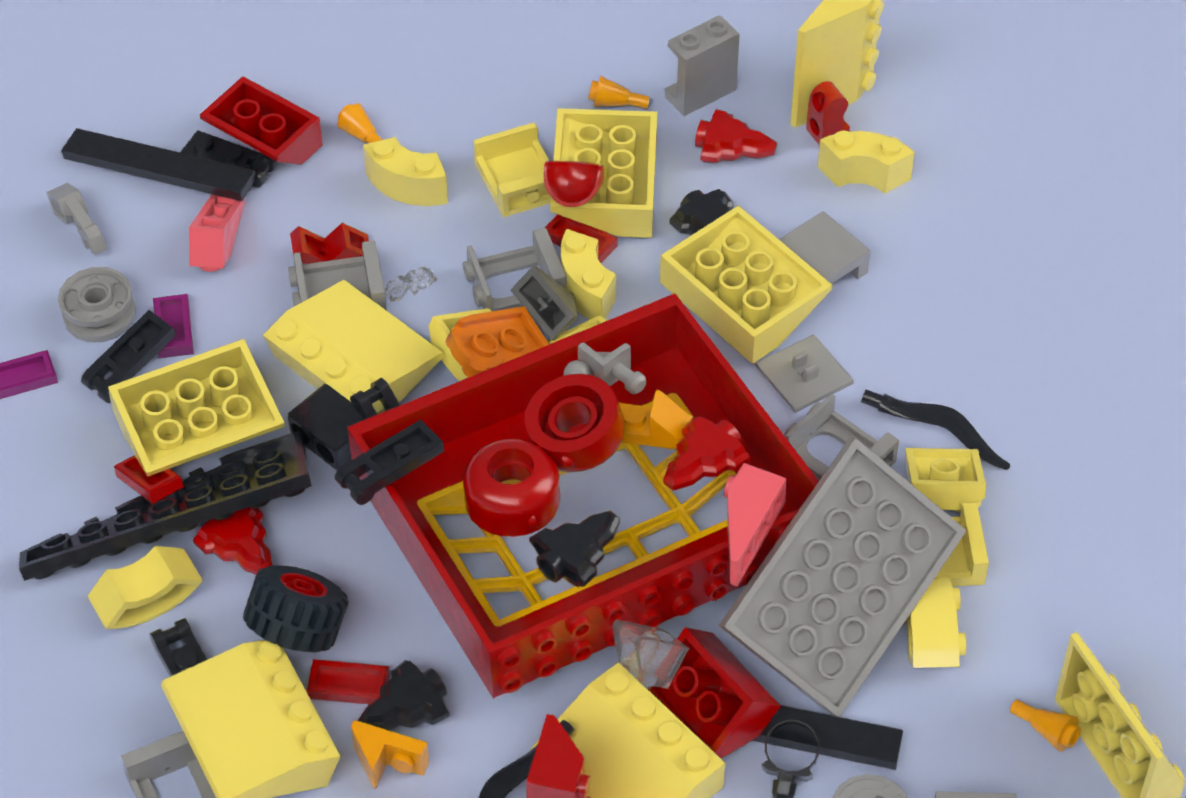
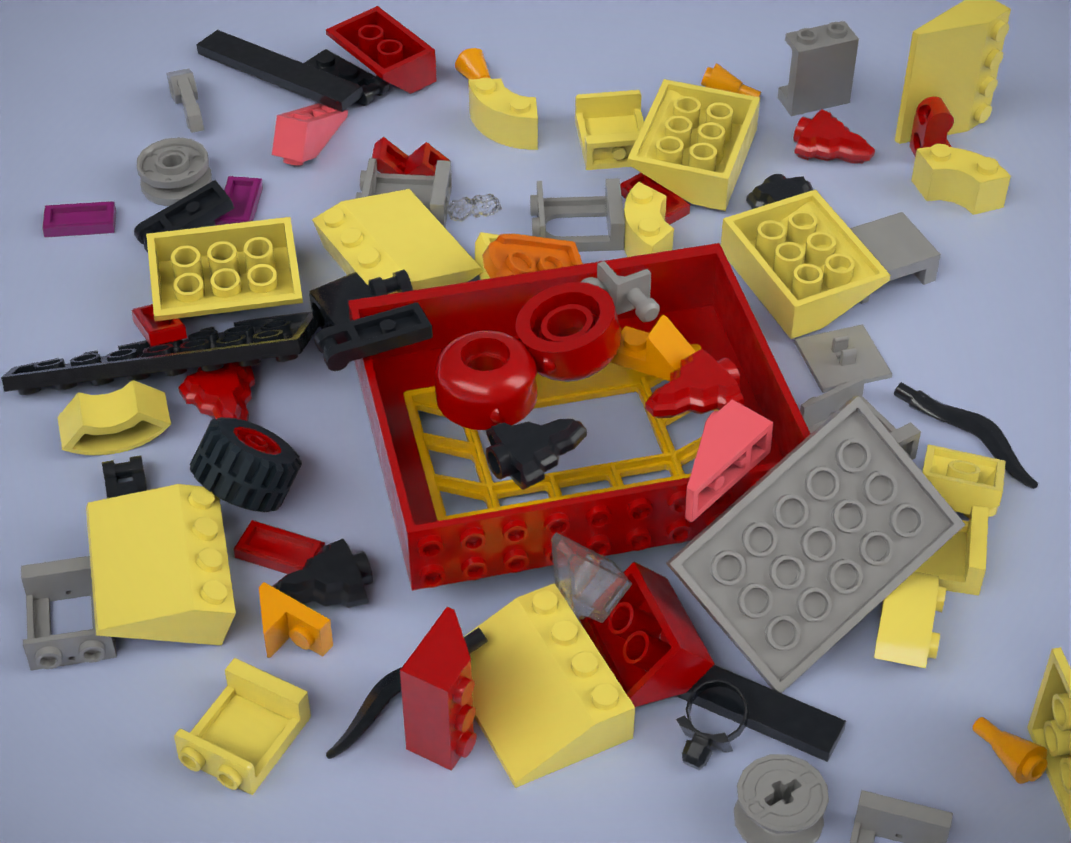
camera: 15 degrees right, 5 degrees down
(546, 301) = (596, 236): dark grey slope -> none
(572, 181) = (653, 138): red helmet -> none

